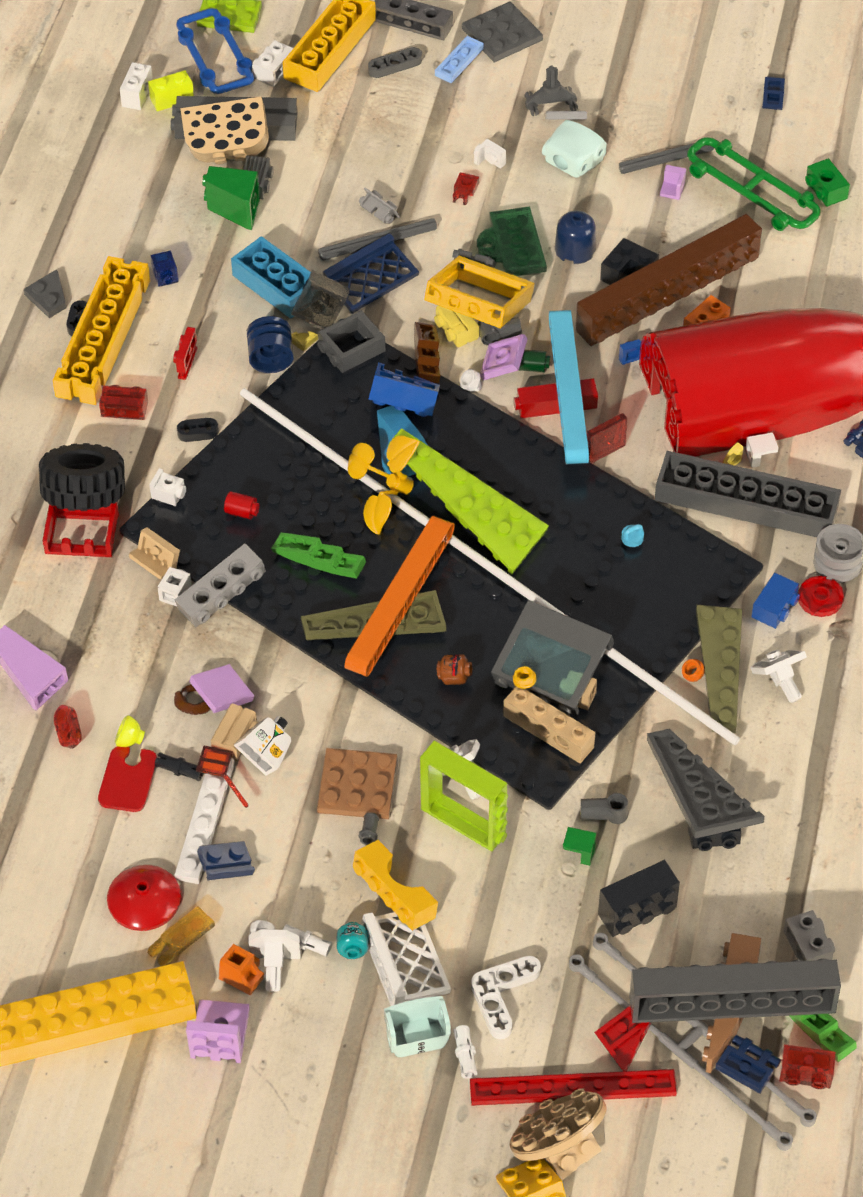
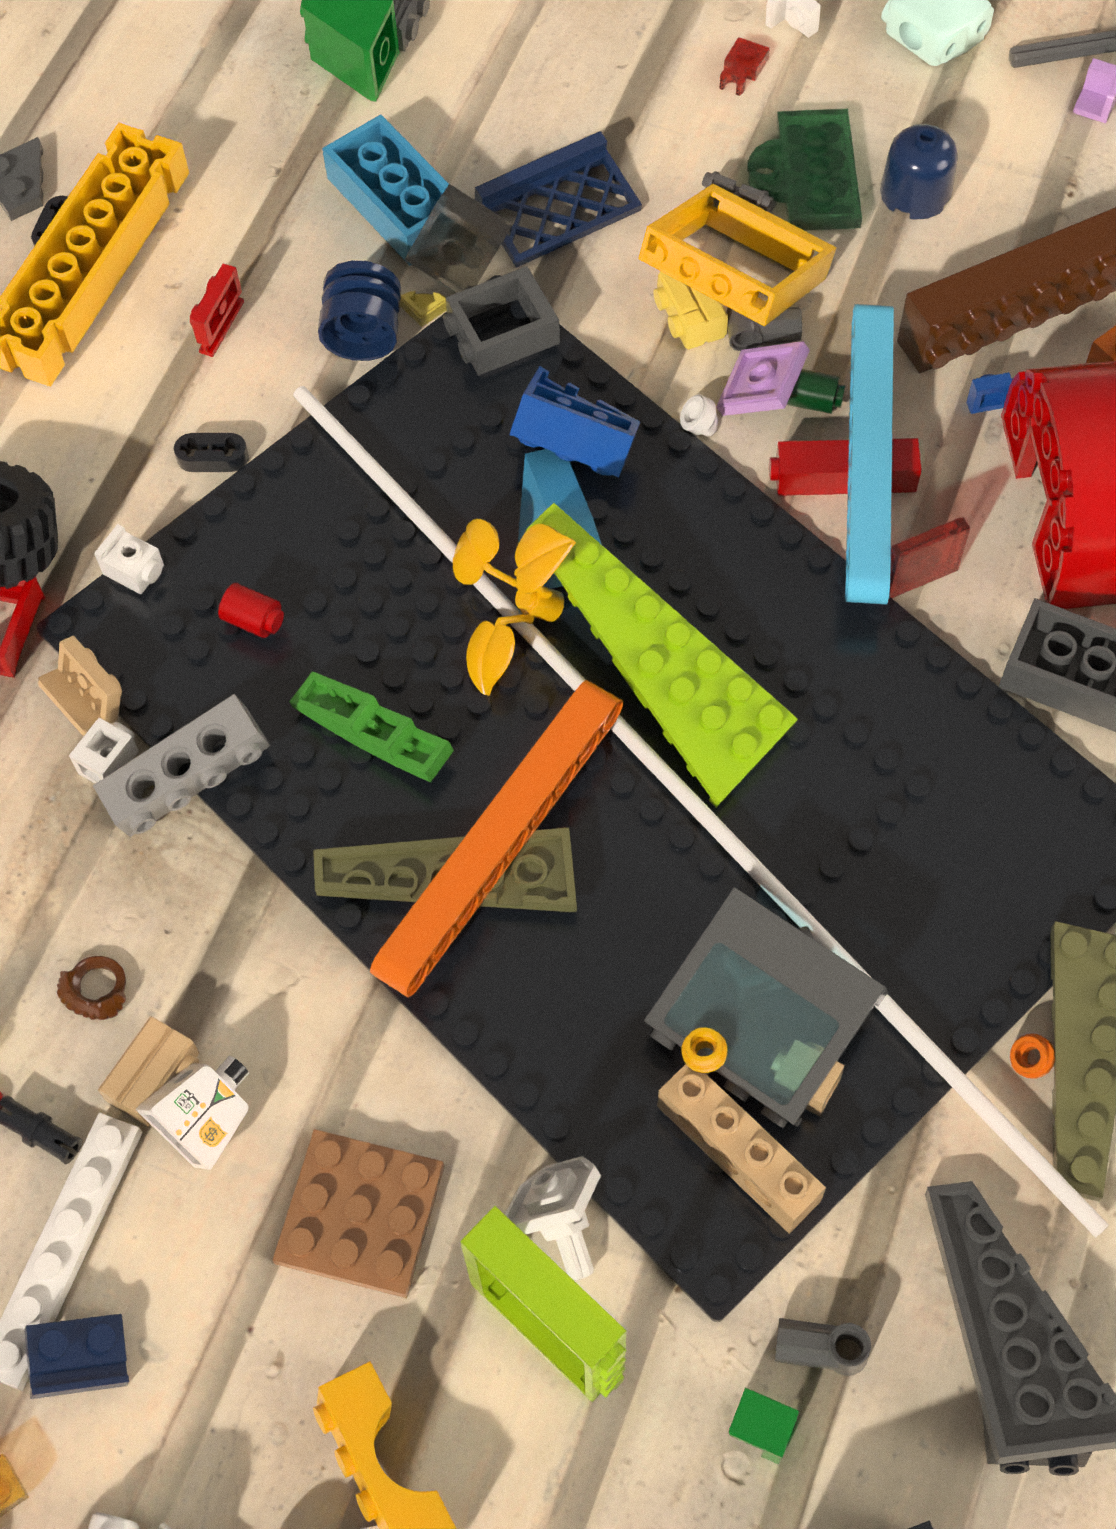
camera: 10 degrees right, 10 degrees up
(123, 402) = (94, 388): clear red brick -> none
(164, 268) = (214, 154): clear blue brick -> none
(216, 762) = (99, 1137): clear red piece -> none
(221, 688) = (144, 976): lavender tile -> none
(359, 243) = (614, 133): dark grey axle -> none
(368, 832) = (362, 1321): dark grey pin -> none
(385, 210) = (603, 89): light grey hinge -> none
(426, 351) = (630, 355): reddish brown slope -> none
(454, 669) = (577, 1000): dark orange head -> none
(625, 260) = (1002, 224): black brick -> none
(632, 535) = (950, 757): medium azure tile -> none

